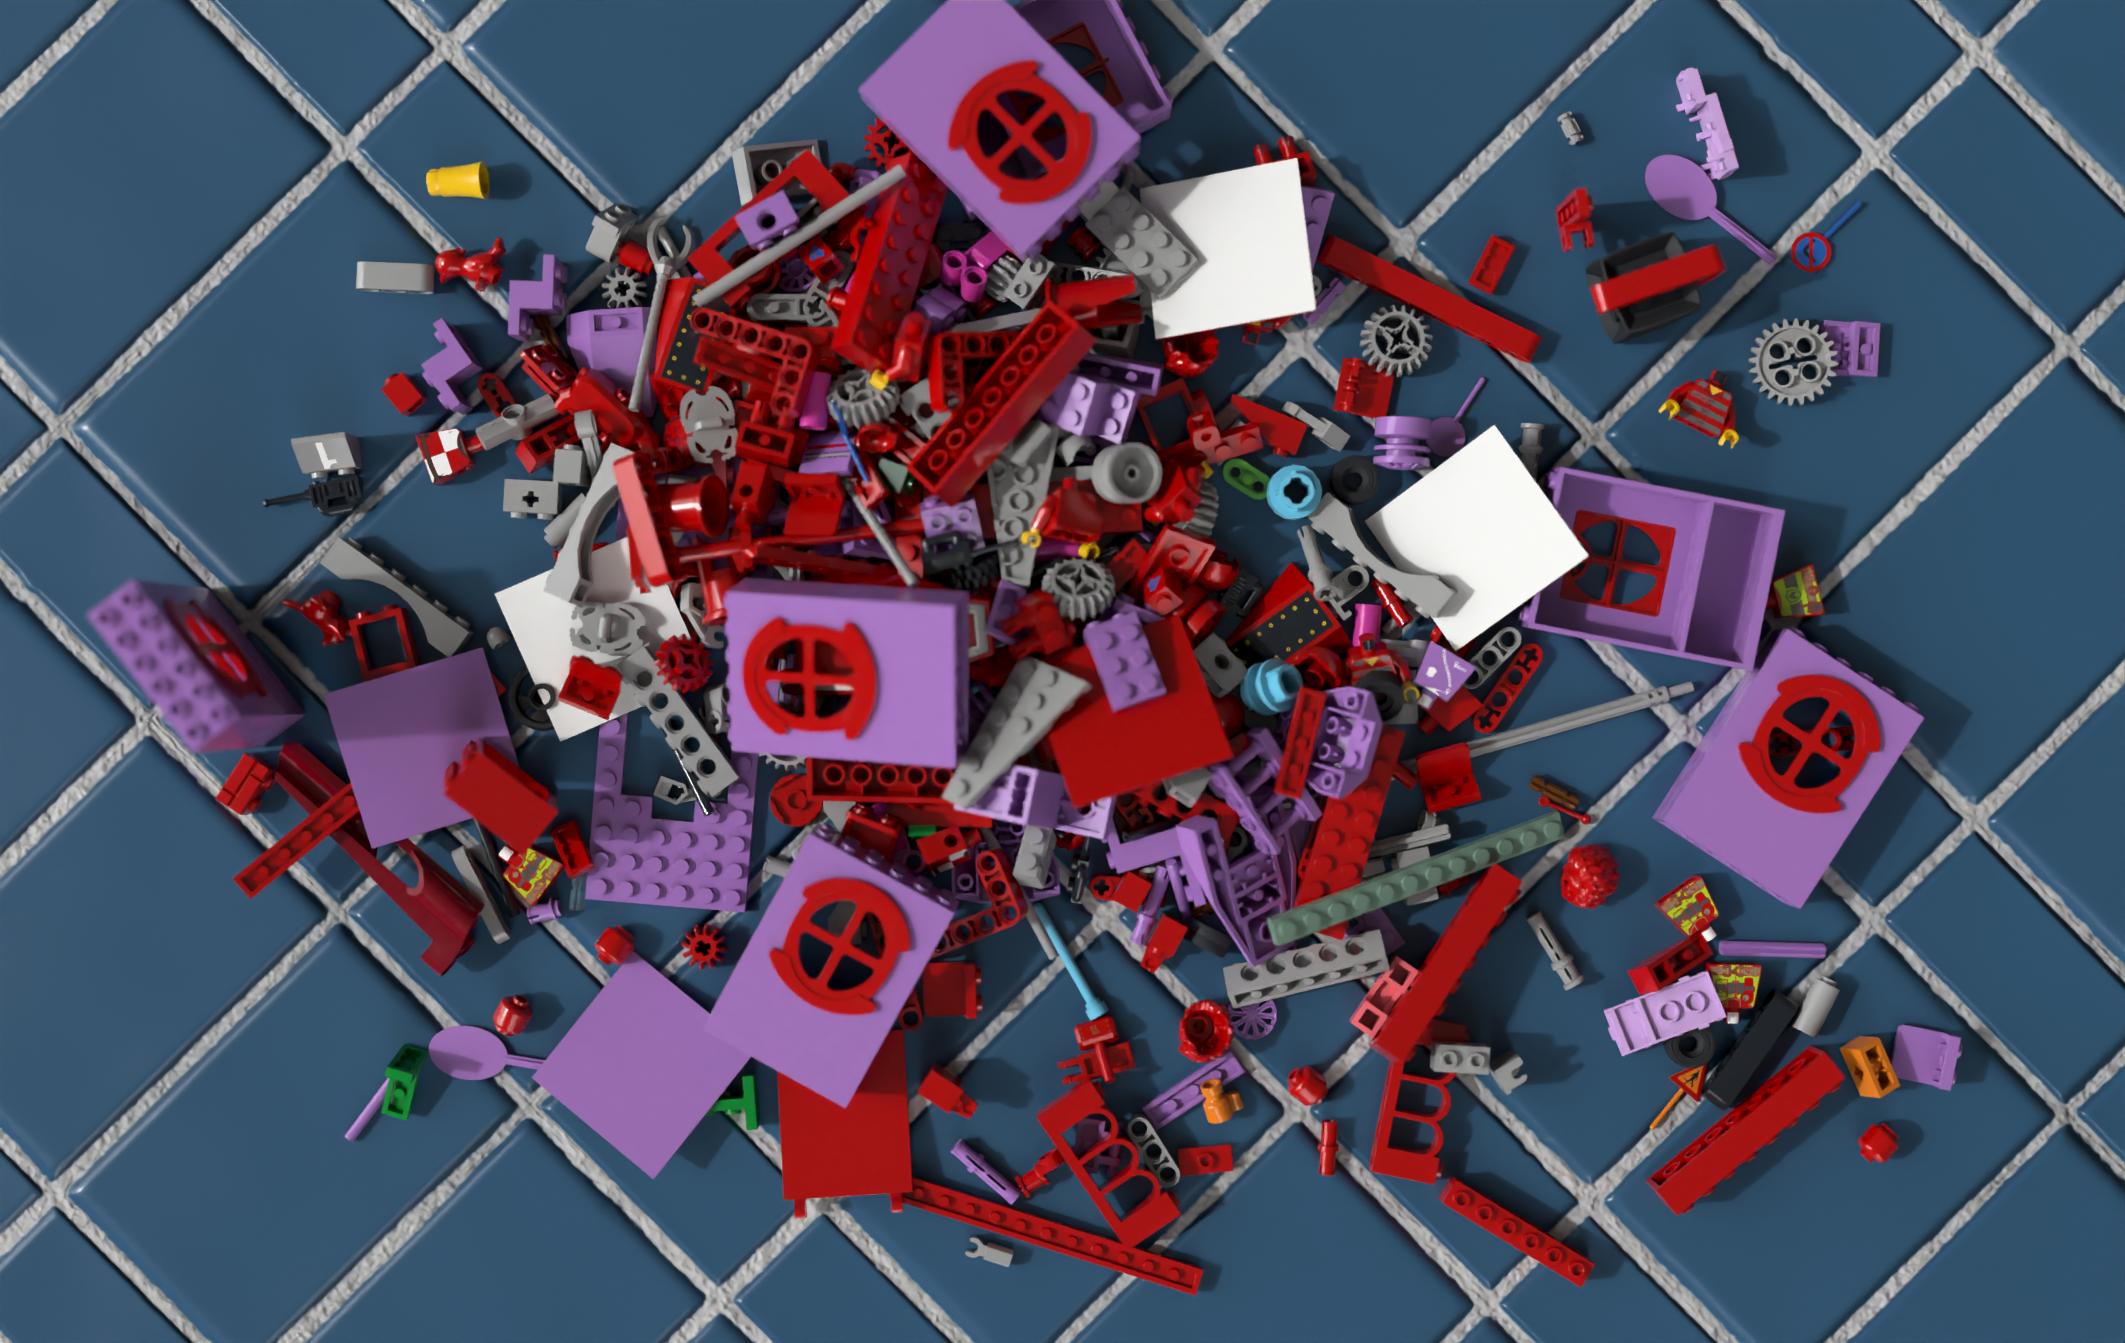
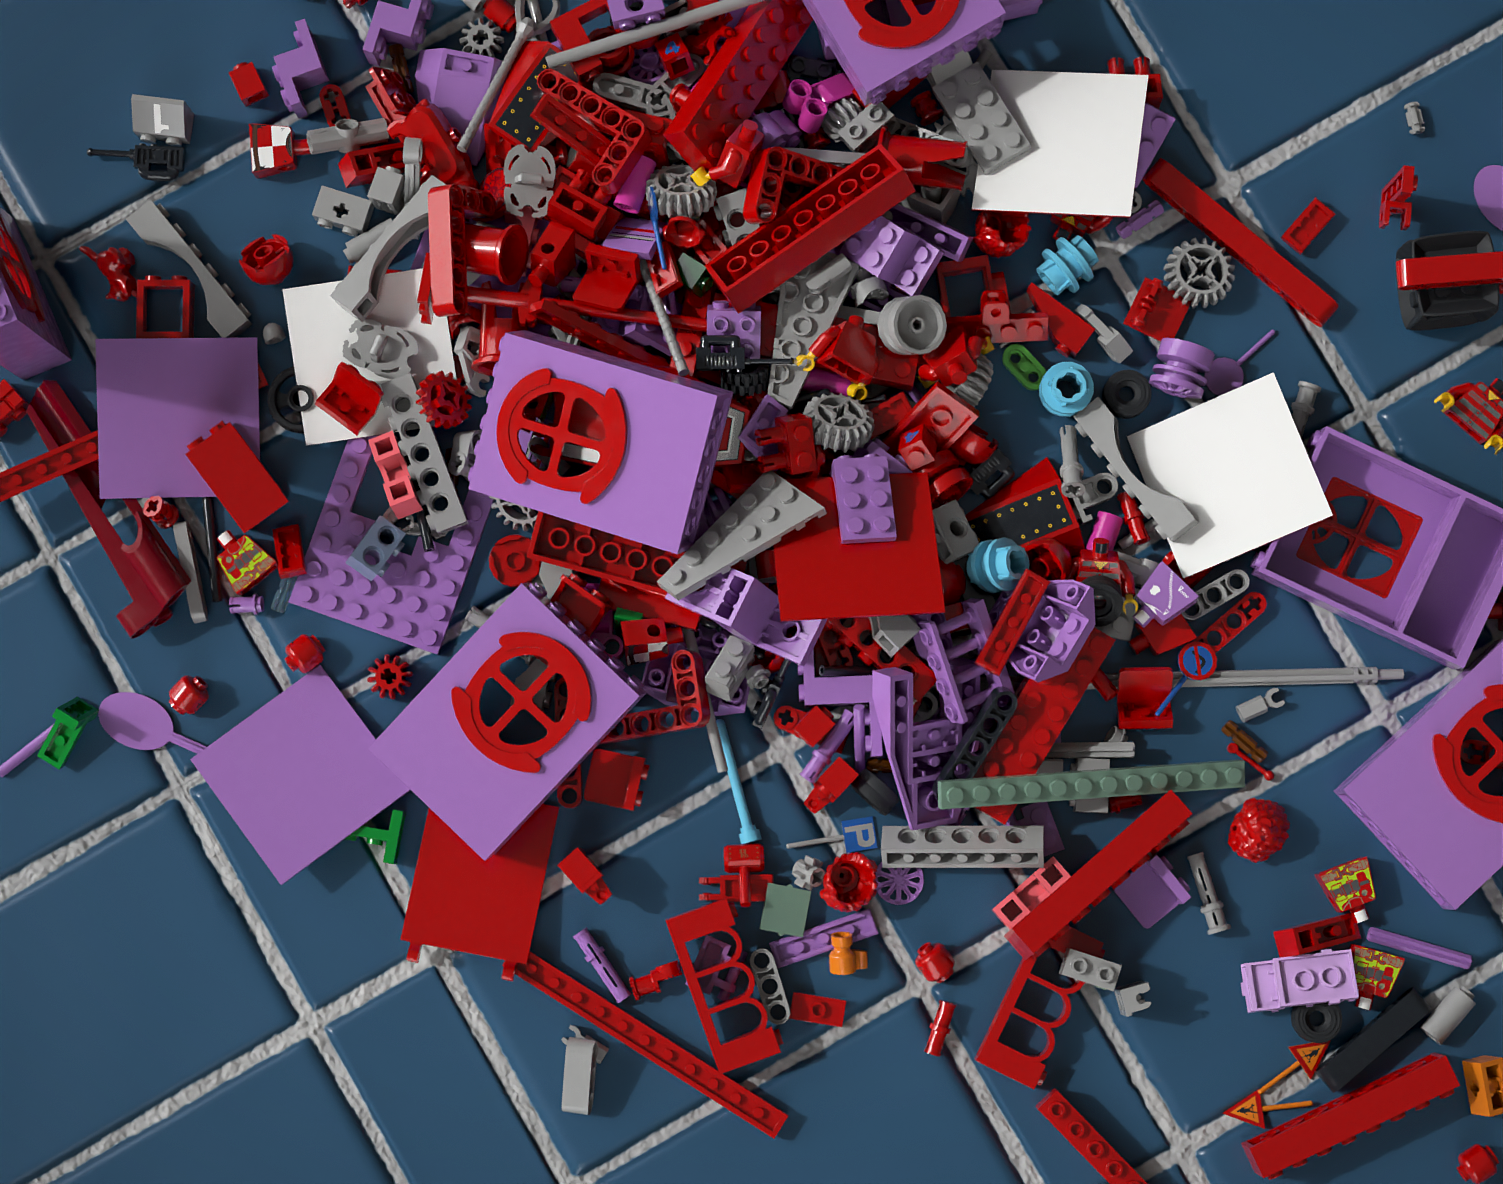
camera: 15 degrees right, 5 degrees down
(435, 844) = (159, 513): none -> red bush
(471, 567) = (267, 260): none -> red cylinder
(652, 824) = (374, 547): none -> sand blue brick
(663, 760) = (393, 467): none -> coral arch
(992, 1285) = (579, 1075): none -> light grey beam
(1064, 856) = (757, 676): none -> light grey plate
(1149, 1073) = (785, 910): none -> sand green piece
(1162, 1031) = (808, 872): none -> light grey gear
(1199, 979) = (857, 836): none -> piece
(1264, 367) = (1067, 265): none -> medium azure piece
(1292, 859) = (977, 733): none -> black beam
(1488, 728) = (1197, 663): none -> piece
(1502, 963) = (1152, 891): none -> medium lavender bracket
(1558, 754) = (1257, 706): none -> light grey bar
(1647, 1146) = (1251, 1109): none -> piece

